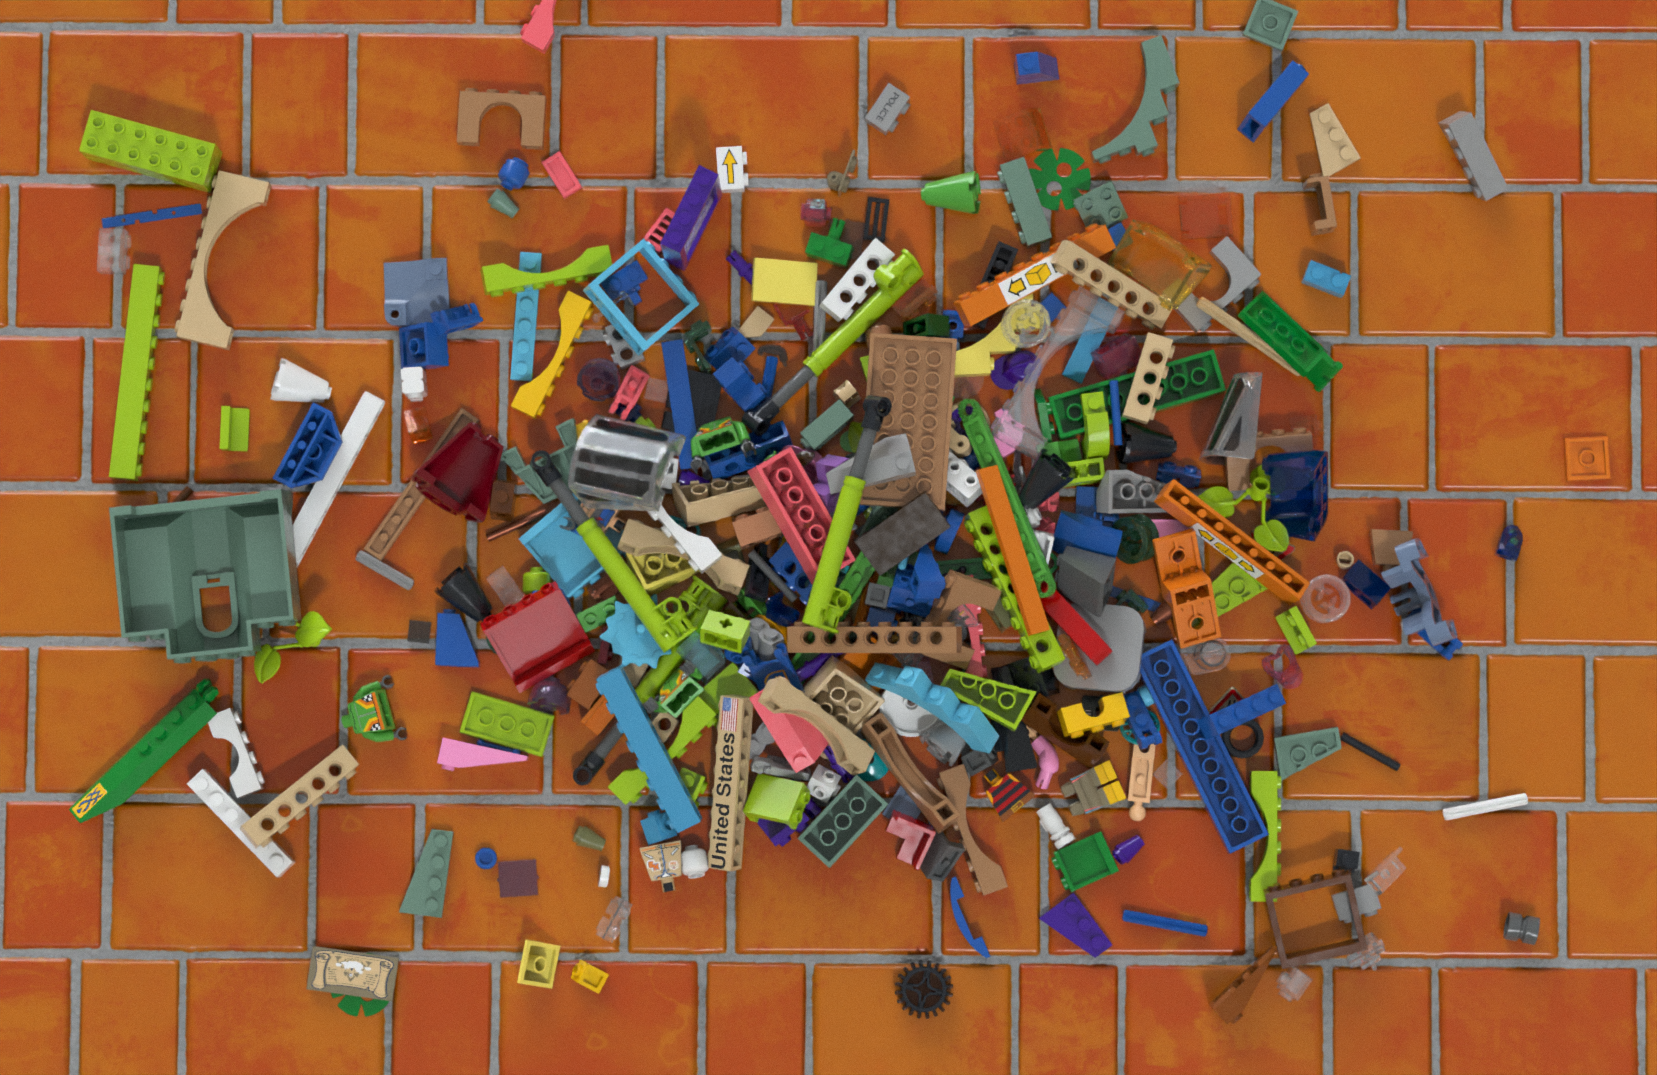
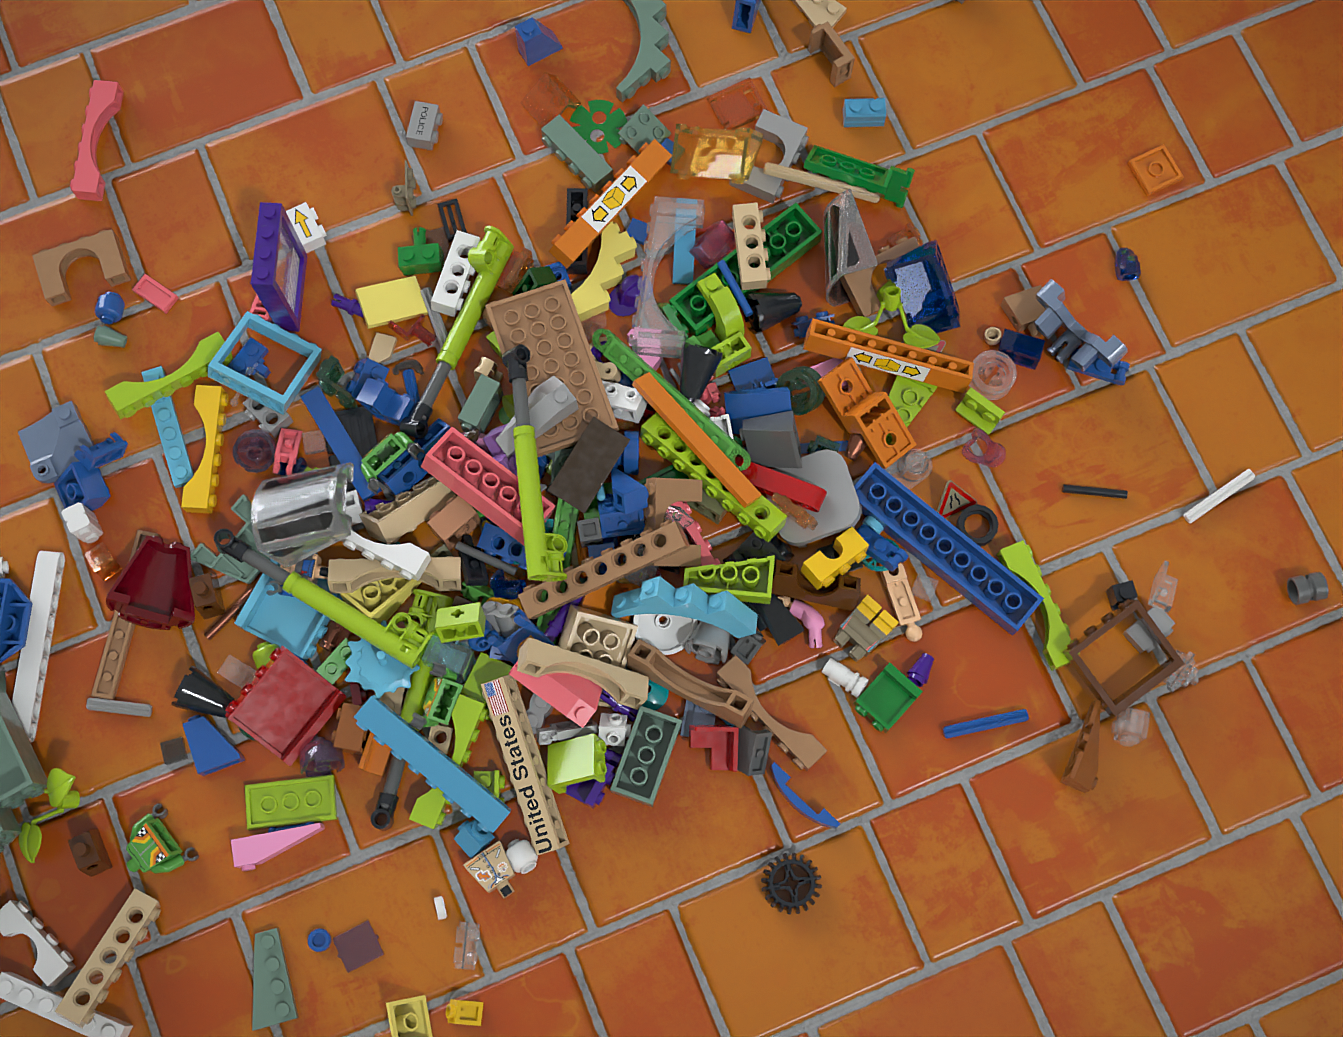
camera: 25 degrees left, 10 degrees down
(313, 694) = (90, 850): none -> reddish brown torso
(587, 838) = (411, 877): olive cone -> none
(815, 212) = (395, 233): clear pink head -> none
(954, 193) = (511, 168): bright green cone -> none
(1006, 794) = (787, 666): torso -> none
(1021, 340) = (623, 233): clear wheel -> none
(1069, 252) = (674, 176): tan brick -> none
(1077, 925) = (905, 760): dark purple wing -> none
(1127, 493) = (776, 353): light grey wedge -> none
(1241, 712) = (966, 500): blue arch -> none
(1303, 749) = (1035, 513): sand green wing -> none

